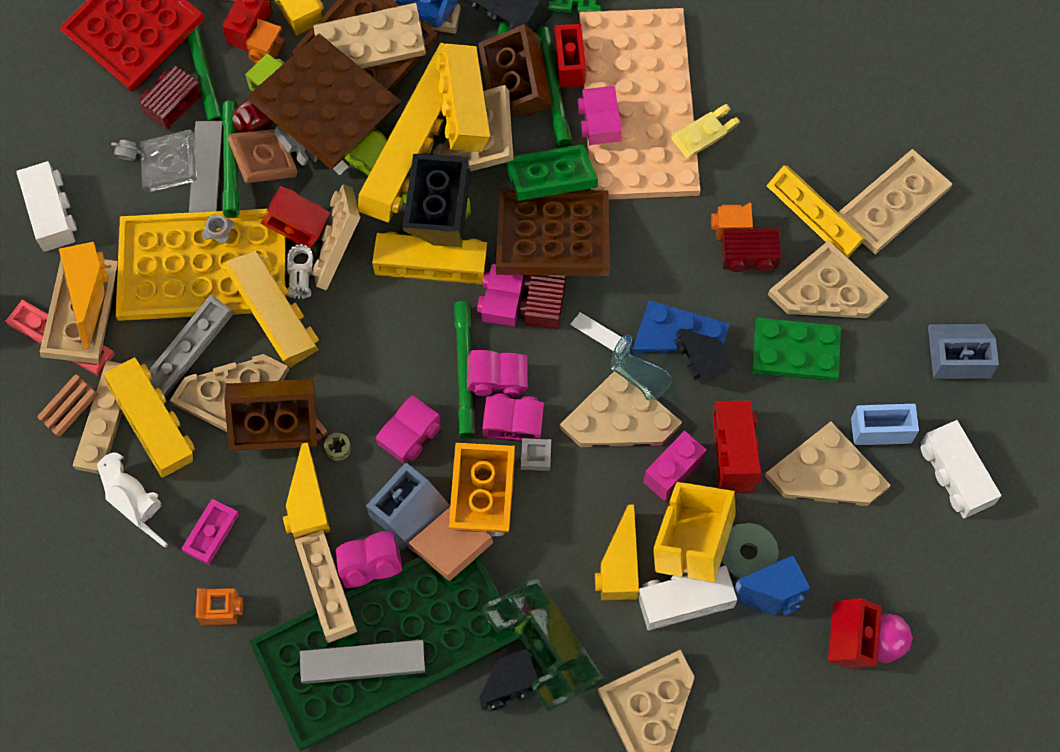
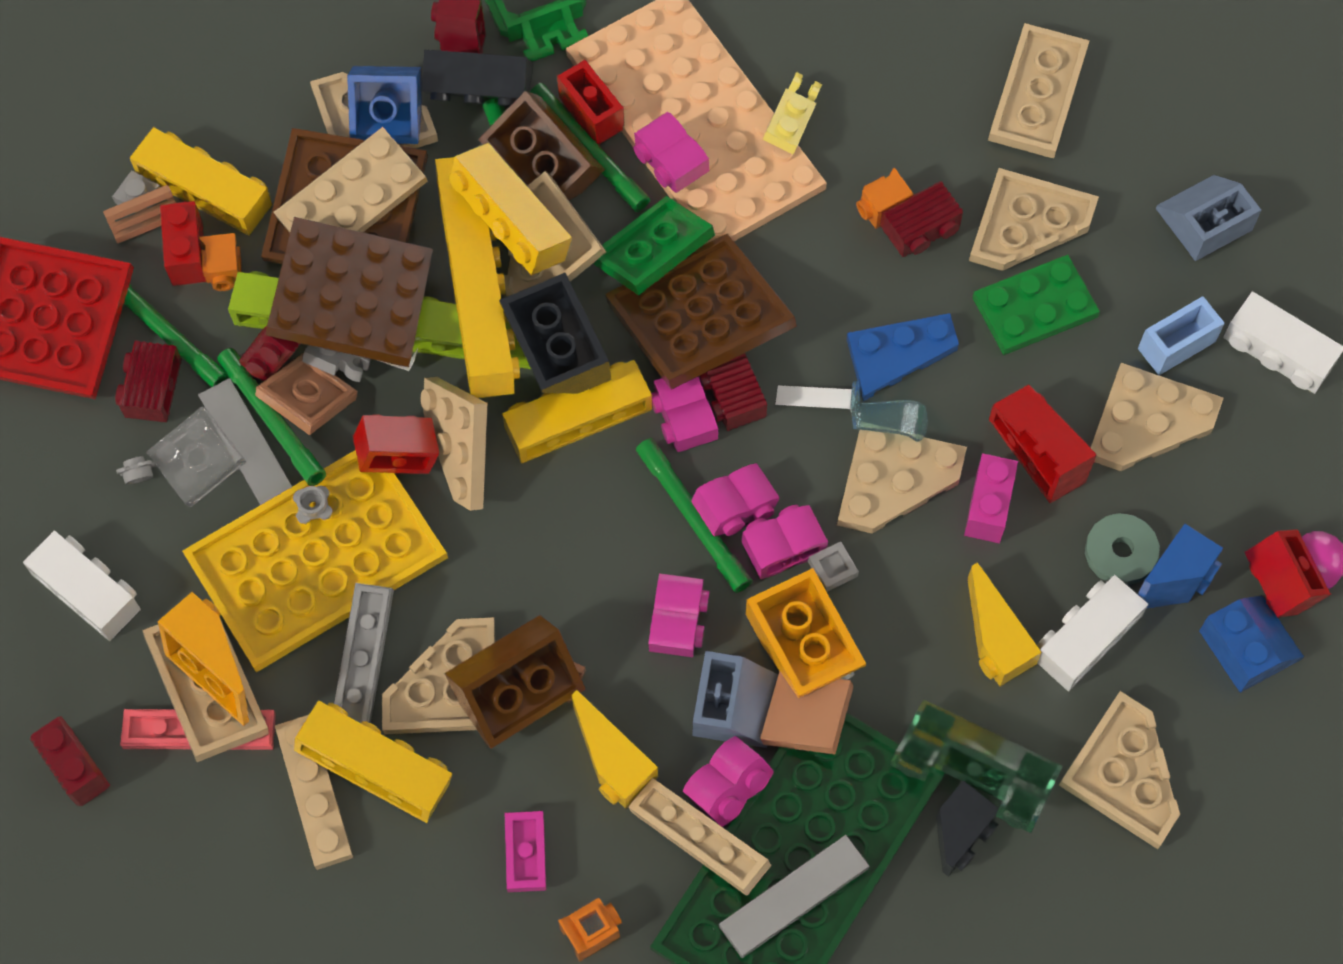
camera: 30 degrees left, 0 degrees up
(64, 402) = (248, 799): nougat tile -> none
(128, 494) = (404, 861): white animal -> none
(271, 308) = (440, 561): yellow slope -> none
(299, 273) = (437, 505): white connector -> none
(329, 444) = (607, 665): olive bush -> none
(695, 532) = (1063, 555): yellow piece -> none
(706, 355) = (948, 360): black slope -> none
(799, 667) = (1249, 641): none -> blue slope
(815, 211) = (963, 142): yellow plate -> none

